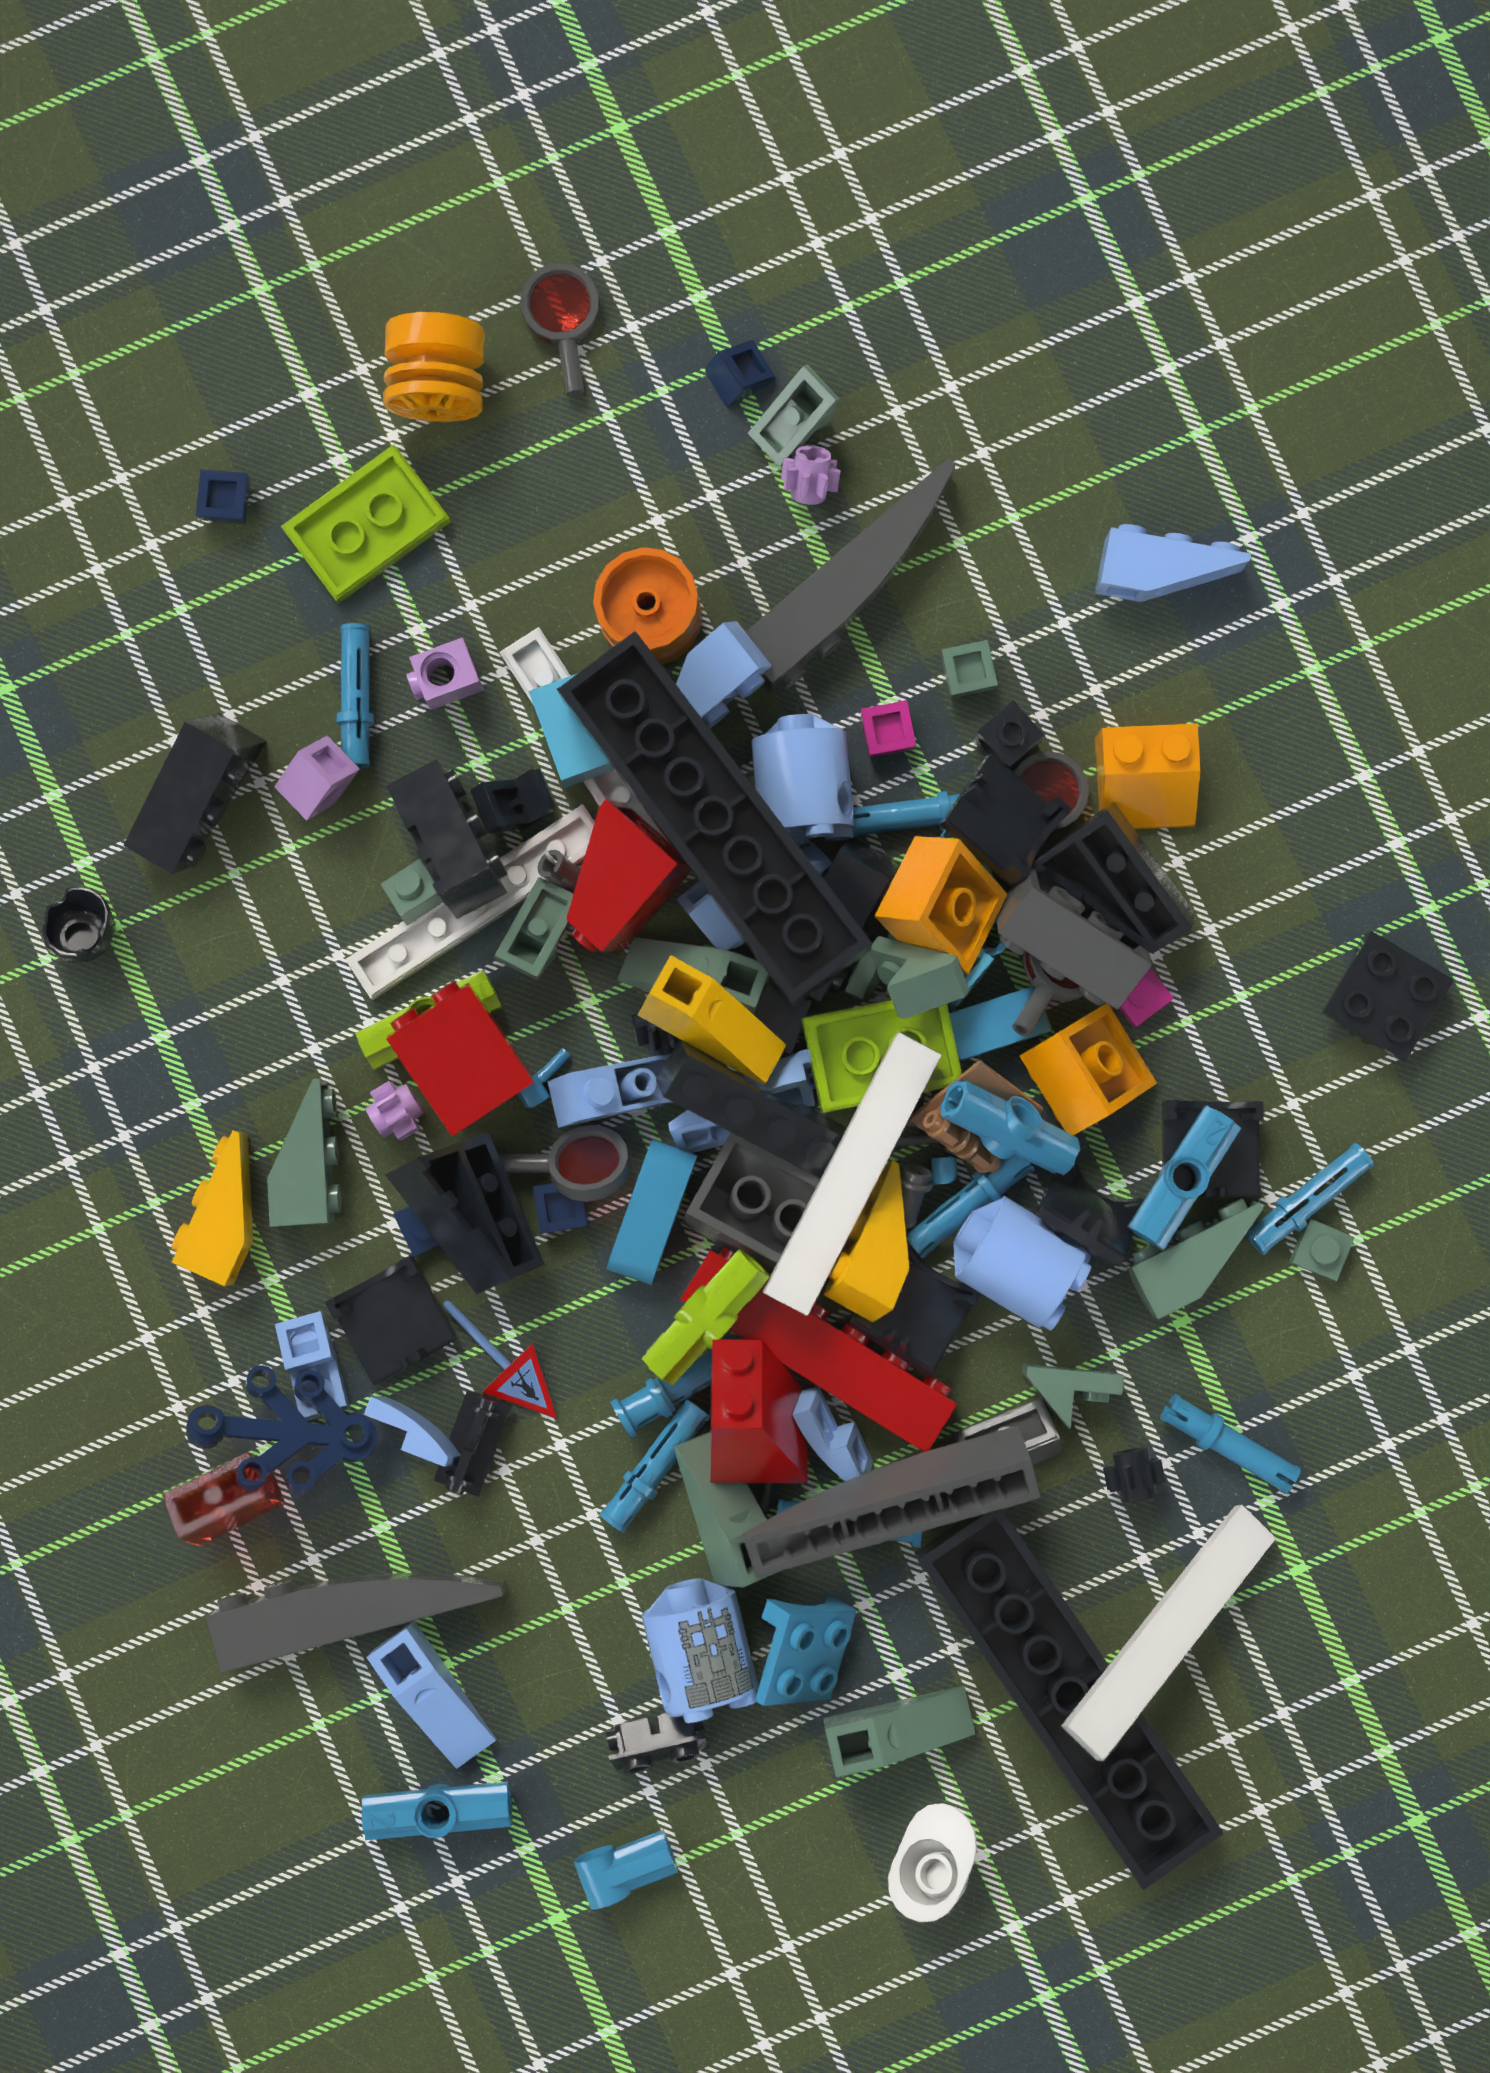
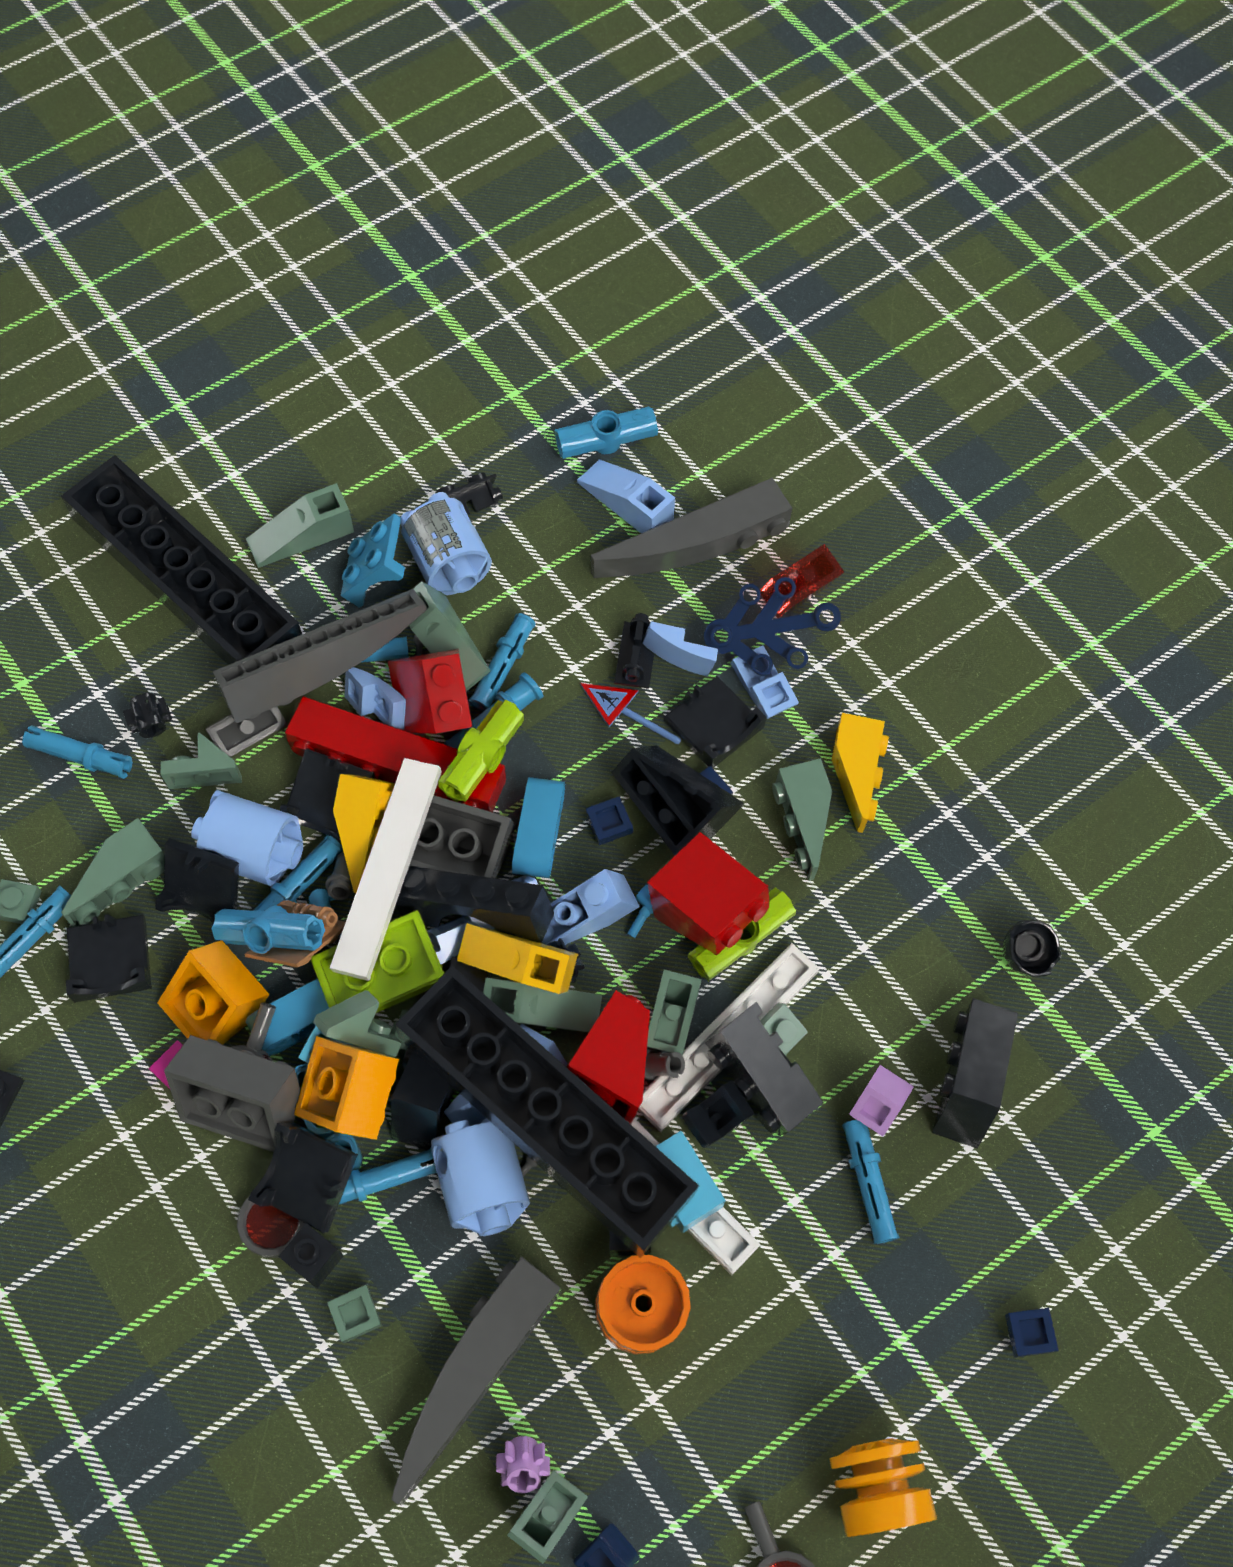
camera: 165 degrees right, 20 degrees down
(366, 523) = (903, 1338): lime tile -> none
(395, 1110) = (754, 857): lavender gear -> none
(452, 654) = (788, 1225): lavender brick -> none
(582, 1163) = (599, 846): dark grey piece -> none
(613, 1872) = (480, 418): dark azure piece -> none
(721, 669) = (567, 1254): light blue slope -> none
(888, 729) = (417, 1245): dark pink plate -> none
(932, 1863) = (263, 452): white piece -> none
(1118, 878) = (200, 1151): black wedge -> none
(1150, 773) = (187, 1251): light orange slope -> none
(1151, 566) = (204, 1442): light blue slope -> none
(1168, 1633) = (109, 613): white tile -> none
(1201, 1152) = (116, 943): dark azure piece -> none

